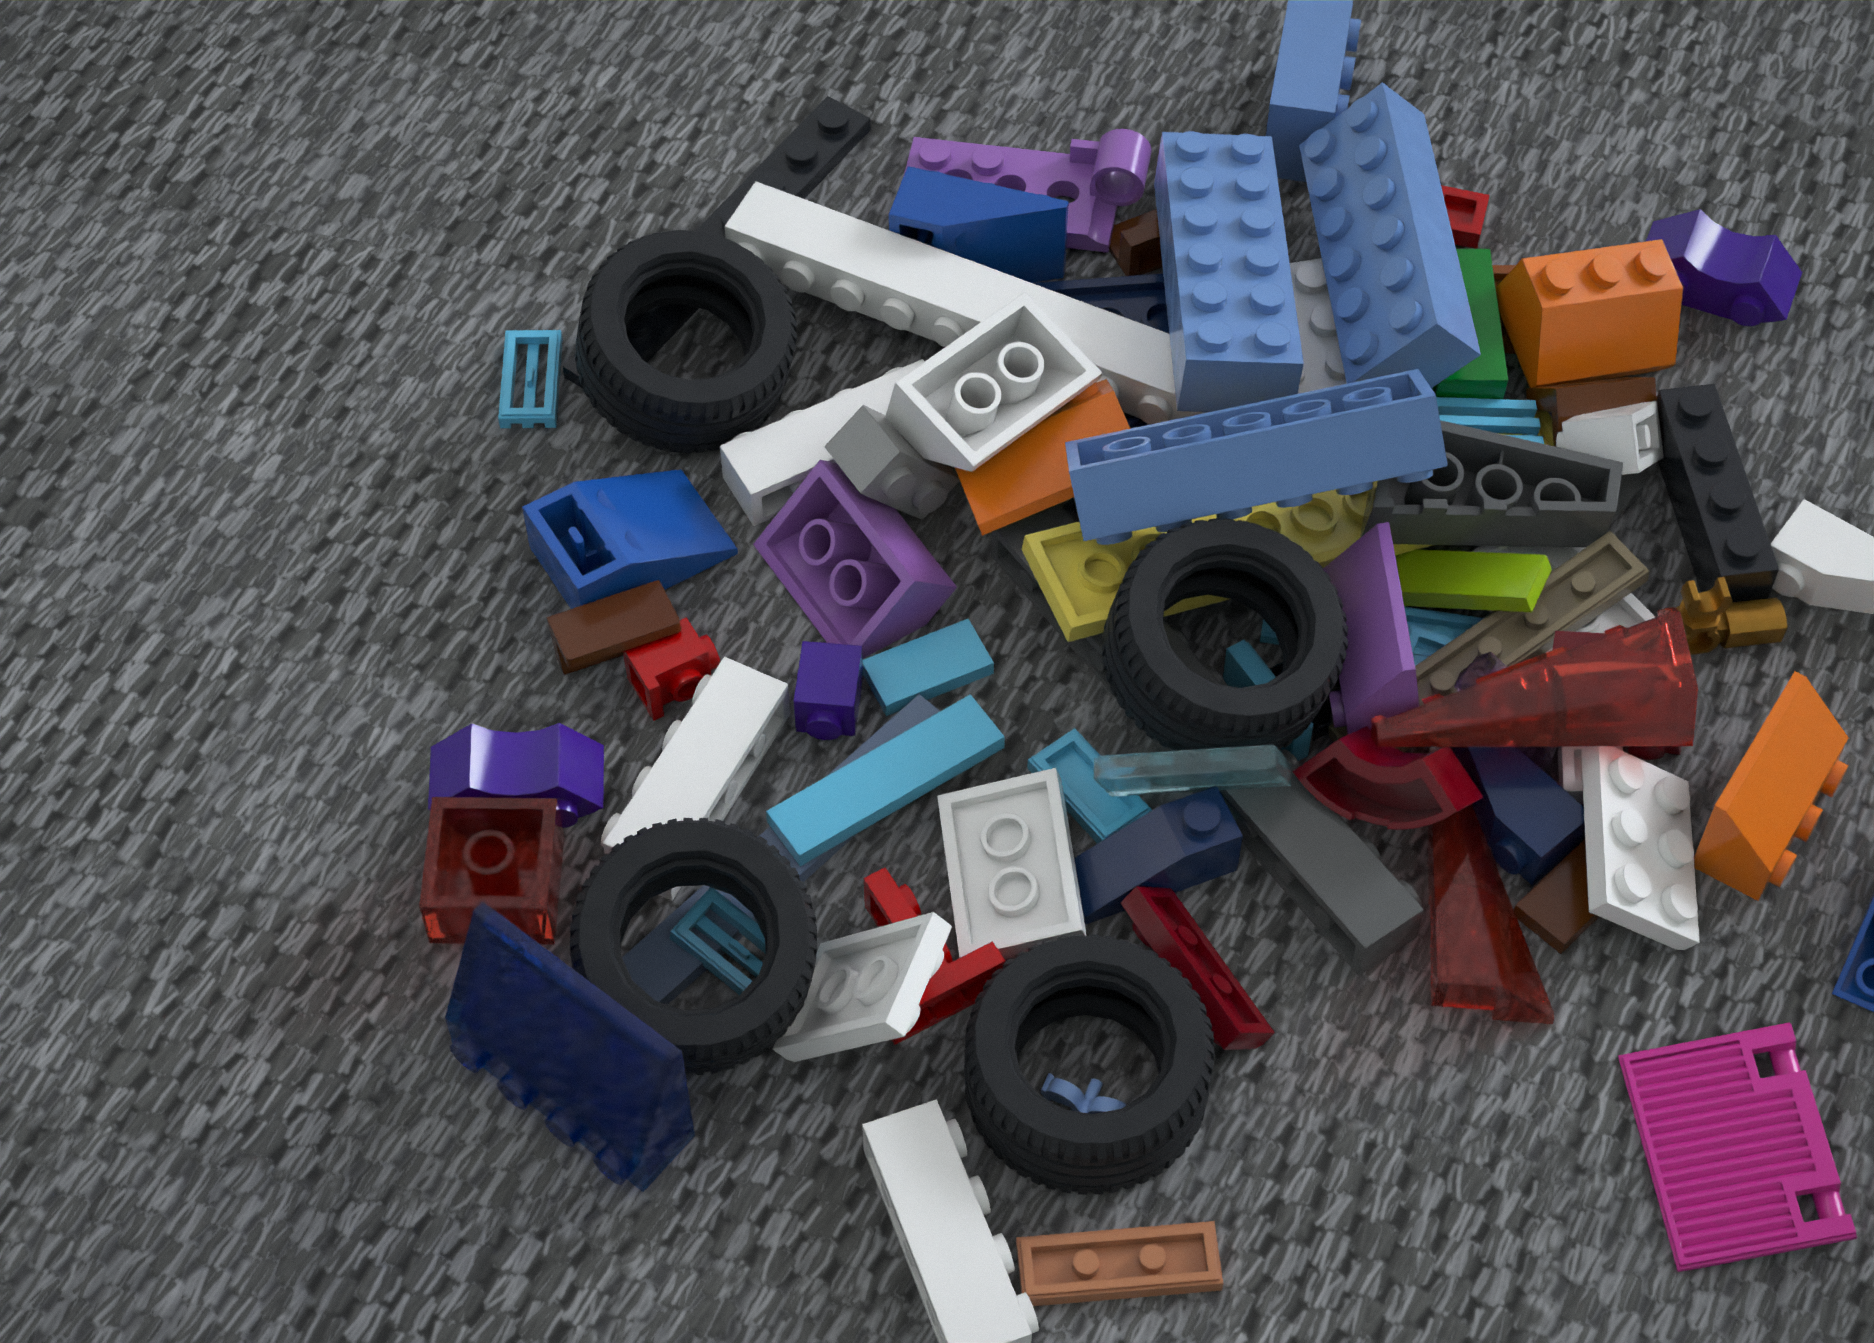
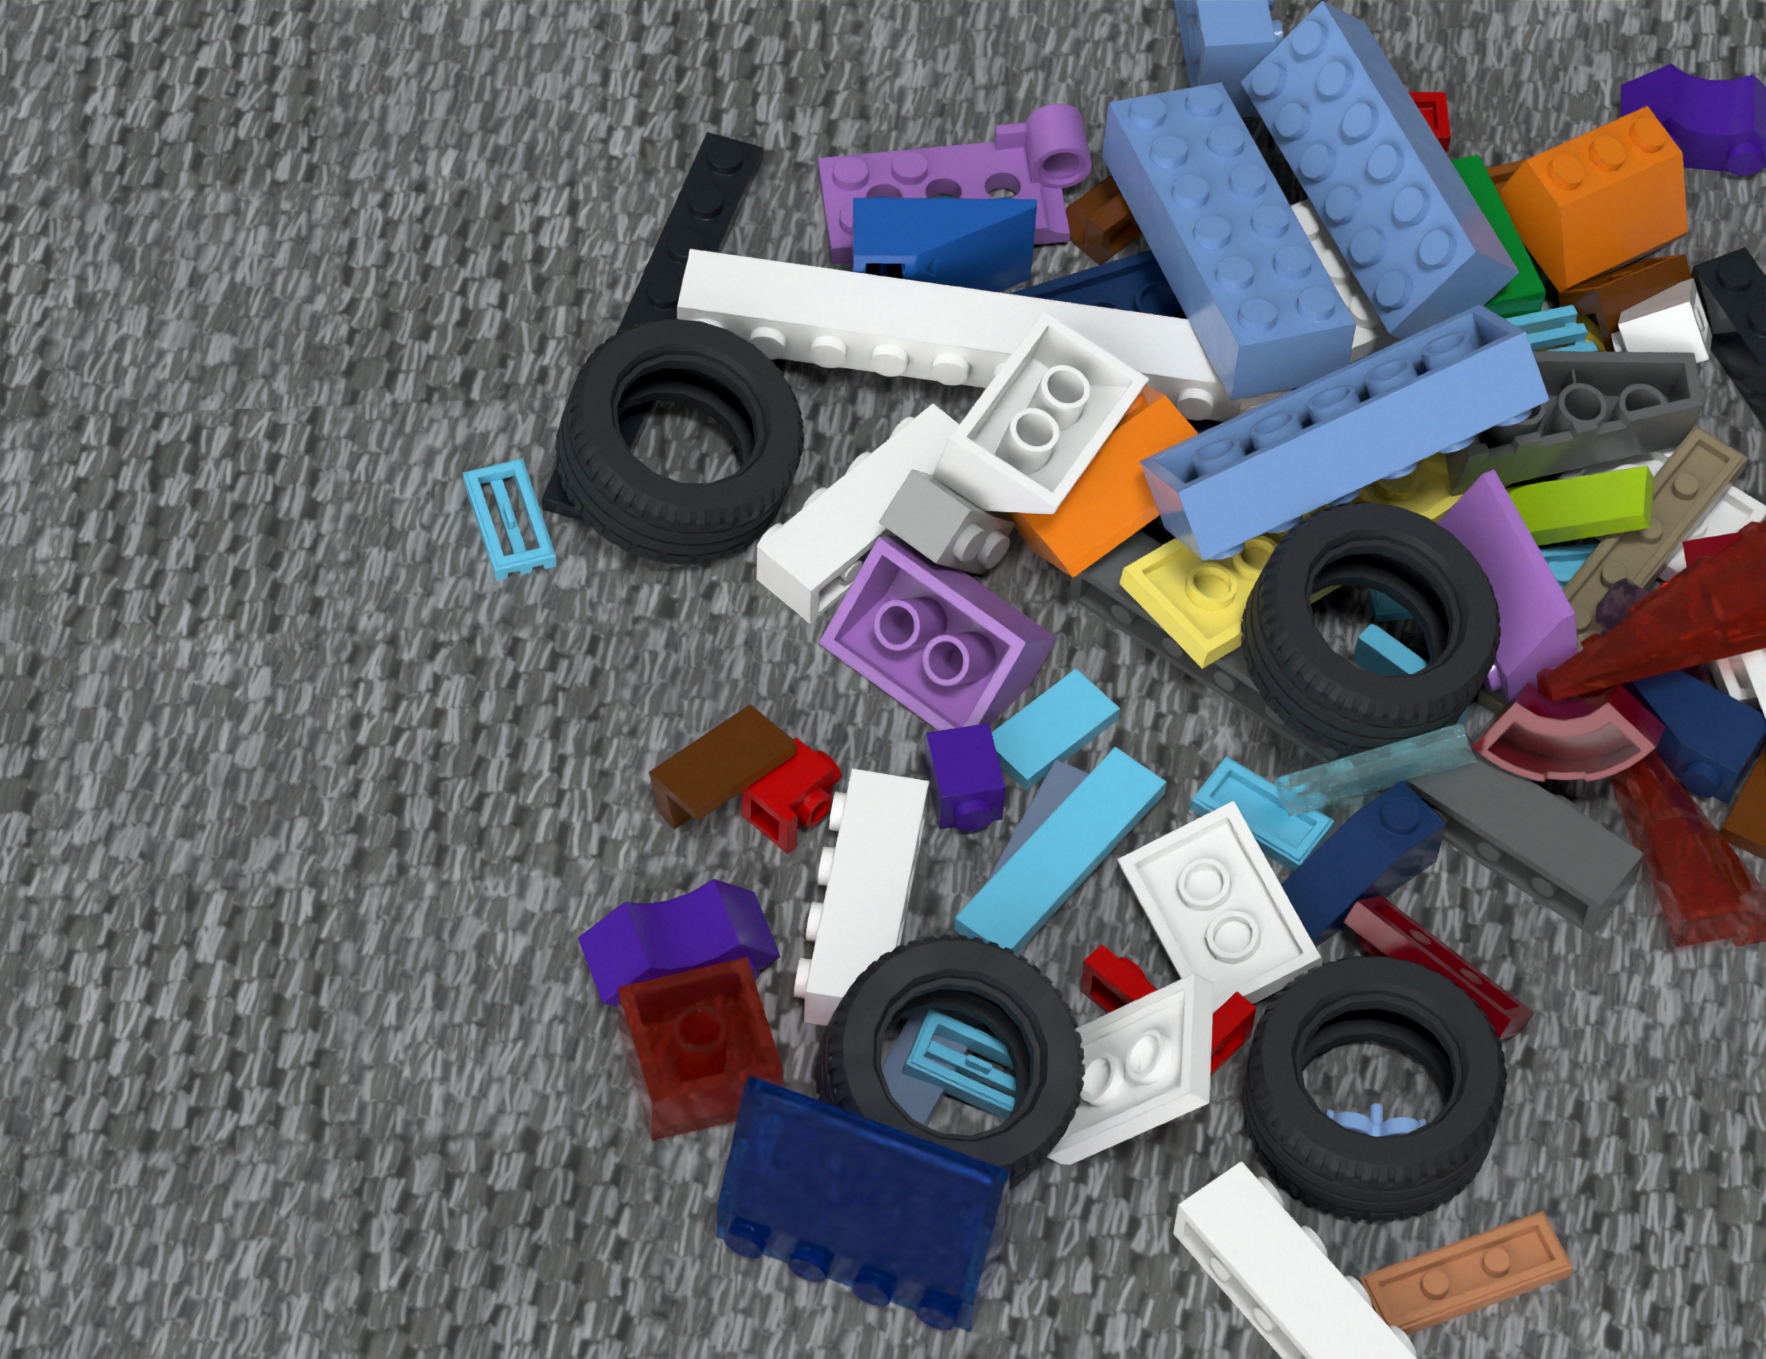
camera: 20 degrees left, 0 degrees up
(624, 534) = (686, 669): blue slope -> none

